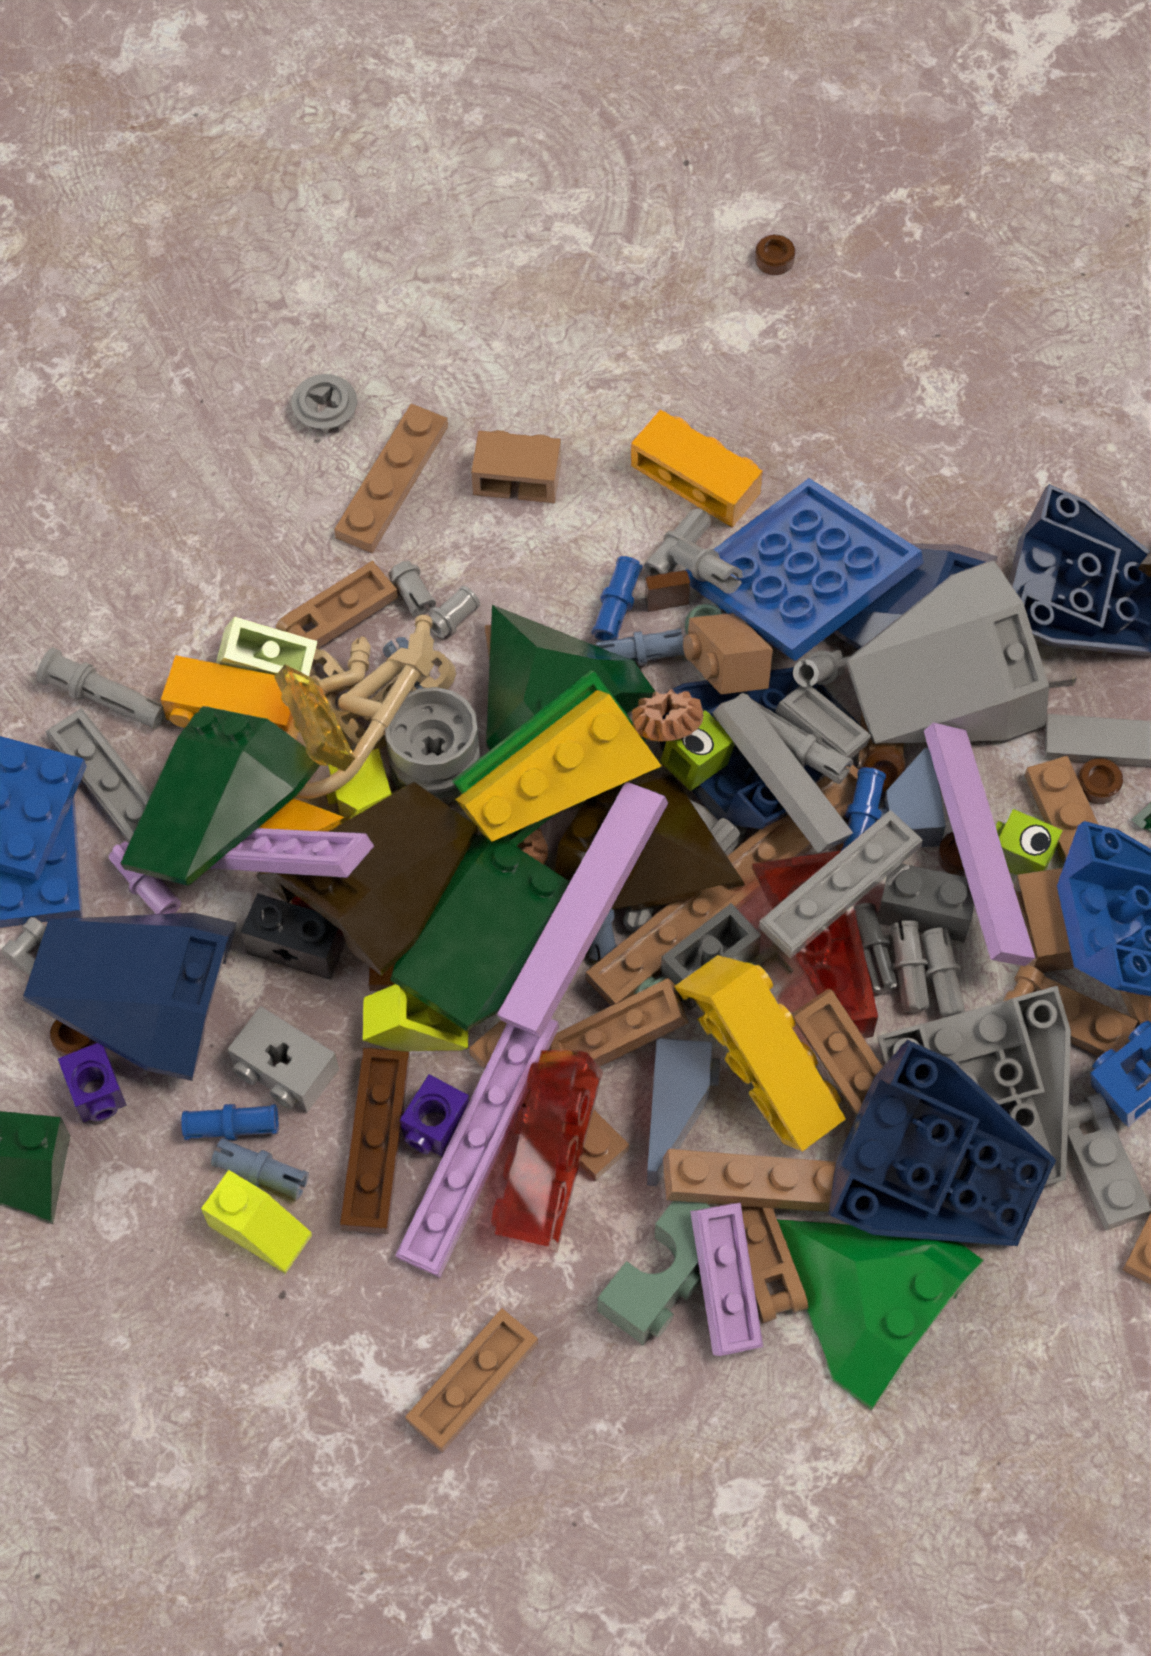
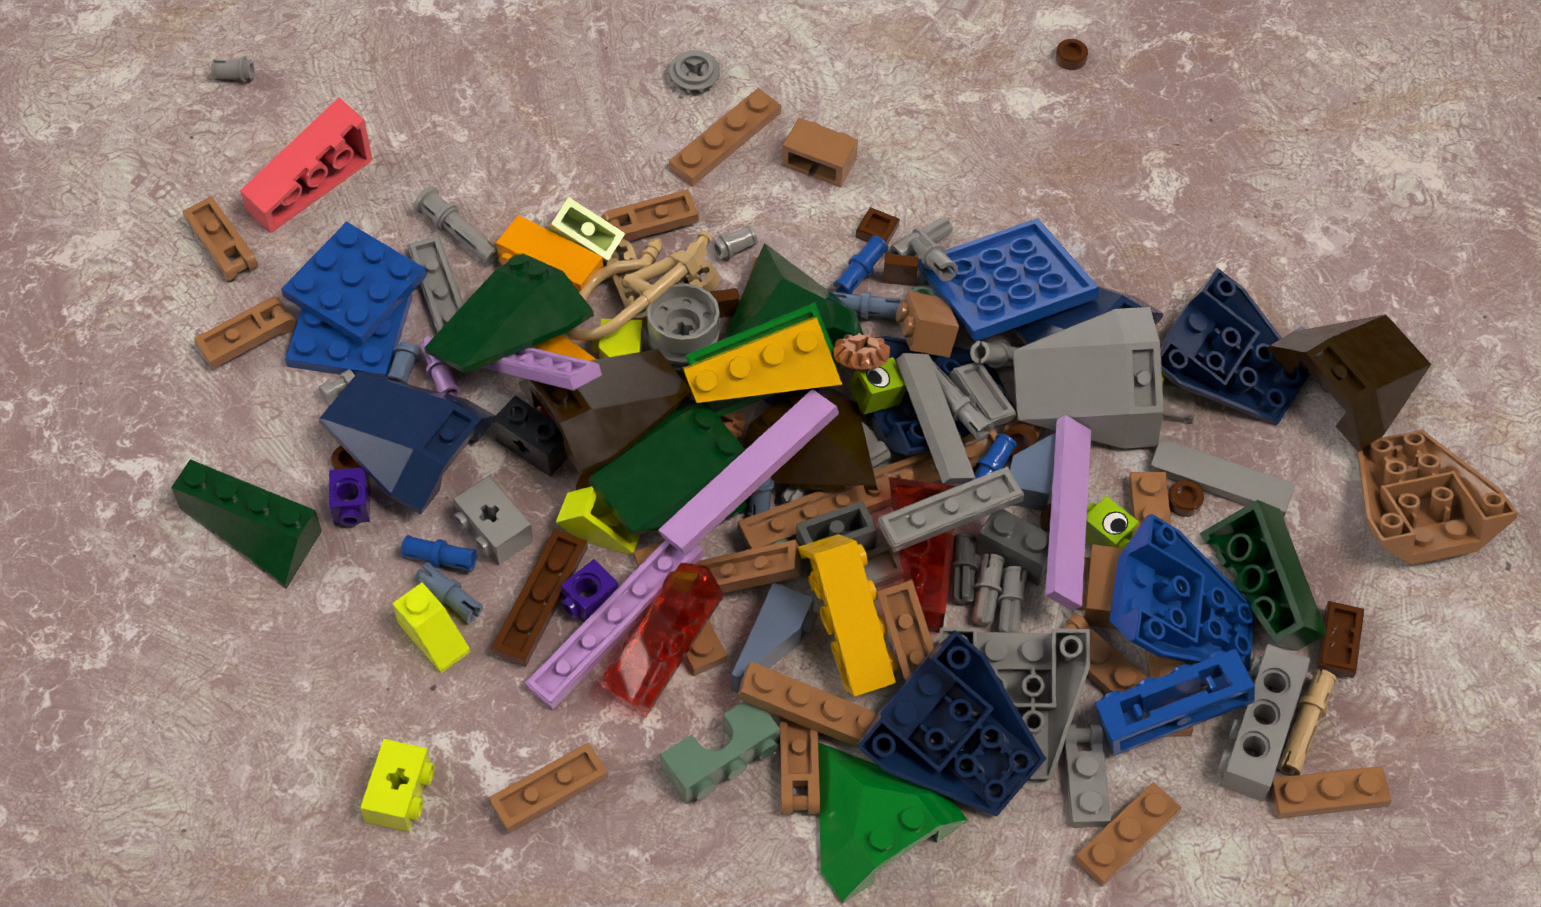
camera: 15 degrees right, 5 degrees down
(96, 888) = (405, 356): none -> sand blue pin
(273, 1411) = (397, 765): none -> neon yellow brick
(314, 719) = (599, 283): clear yellow plate -> none
(411, 587) = (709, 211): light grey pin -> none
(473, 690) = (727, 301): none -> reddish brown tile
(617, 540) = (878, 224): none -> reddish brown tile
(696, 467) = (955, 188): light orange brick -> none
(726, 1279) = (763, 770): lavender tile -> none

